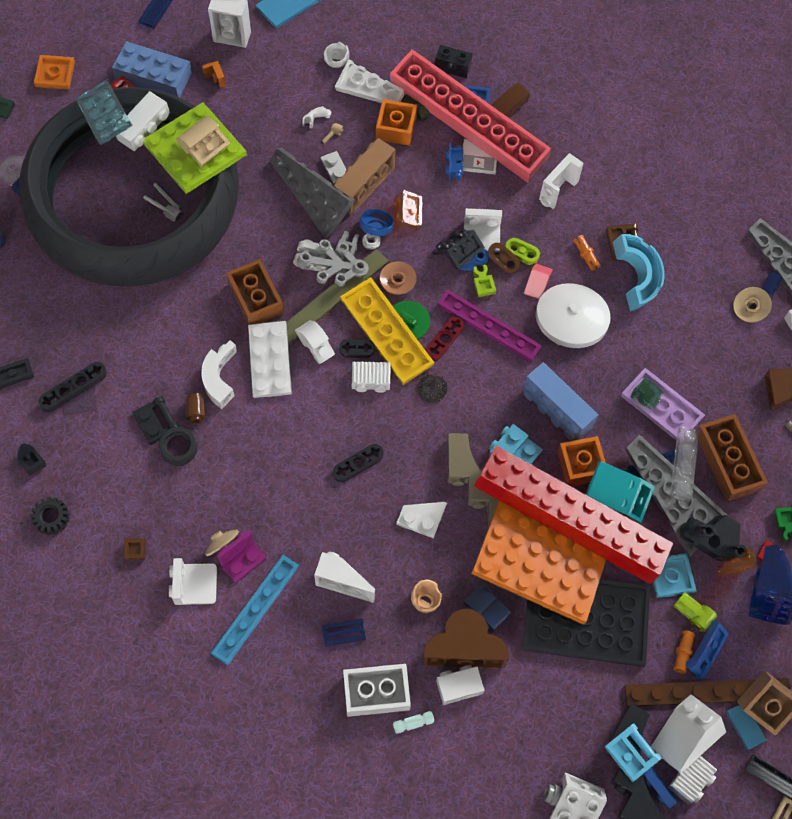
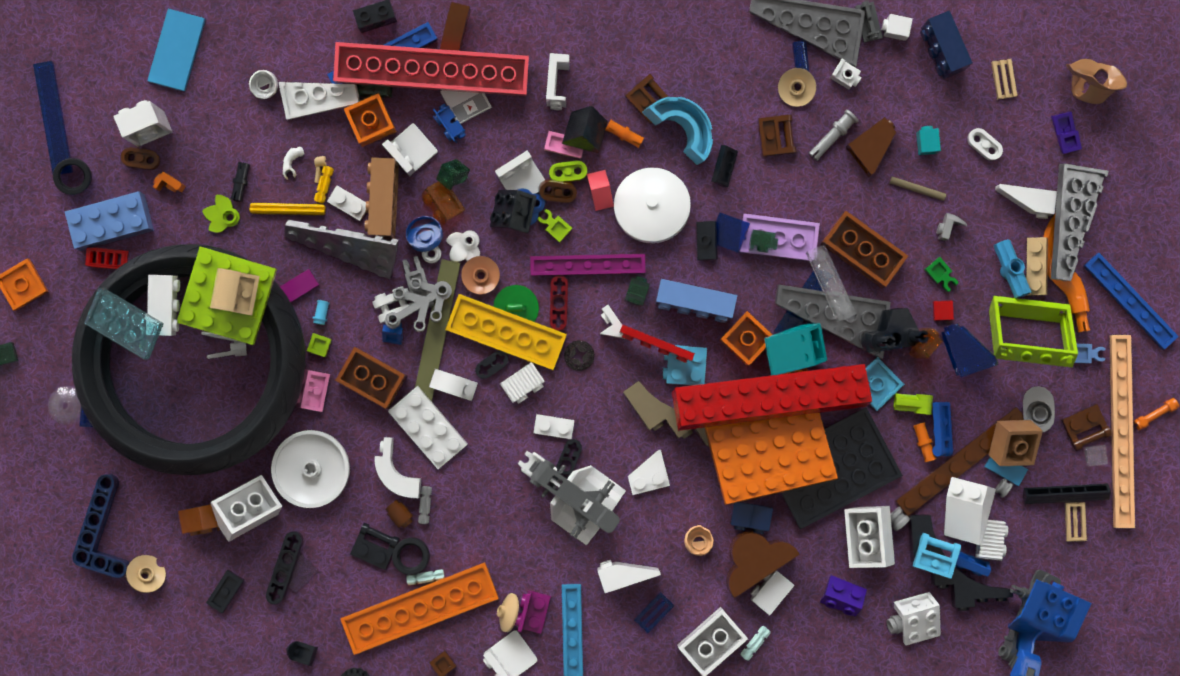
camera: 30 degrees left, 20 degrees up
(48, 306) = (198, 520): none -> dark orange brick
(80, 318) = (245, 508): none -> white slope
(146, 15) = (57, 176): none -> black tyre
(152, 492) = (419, 608): none -> orange plate
(154, 326) = (310, 469): none -> white dish
(176, 471) = (425, 577): none -> light aqua axle
(203, 275) = (313, 391): none -> bright pink bracket
(210, 47) = (141, 158): none -> reddish brown plate
(220, 416) = (425, 502): none -> light grey axle
(233, 117) = (218, 214): none -> lime plate
(234, 247) = (319, 345): none -> lime plate
(253, 200) = (300, 285): none -> magenta tile
(254, 227) = (321, 312): none -> medium azure pin
(267, 105) = (240, 182): none -> black pin
(287, 144) = (289, 209): none -> yellow axle
(296, 275) = (392, 335): none -> blue tile
(327, 145) = (323, 184): none -> yellow axle
(349, 493) = (582, 500): none -> piece
(371, 427) = (554, 426): none -> white plate
(398, 251) = (461, 248): none -> white plate
(411, 161) = (410, 149): none -> white bracket
(431, 194) = (452, 173): none -> clear green brick
(476, 383) = (609, 317): none -> white slope
(506, 414) = (648, 341): none -> red plate
(514, 369) = (637, 291): none -> clear green brick
(521, 736) = (843, 596): none -> dark purple bracket
(533, 231) = (555, 145): none -> bright pink plate
(558, 229) = (585, 129): none -> black slope
(581, 694) = (869, 537): none -> white brick
(600, 369) = (707, 240): none -> black plate
(616, 700) = (898, 519): none -> light grey wheel
(623, 374) = (731, 232): none -> clear blue piece
(652, 324) = (724, 166): none -> black plate
(705, 328) = (770, 135): none -> reddish brown plate
(733, 740) = (1003, 487): none -> light grey bush
(768, 357) = (839, 128): none -> light grey pin

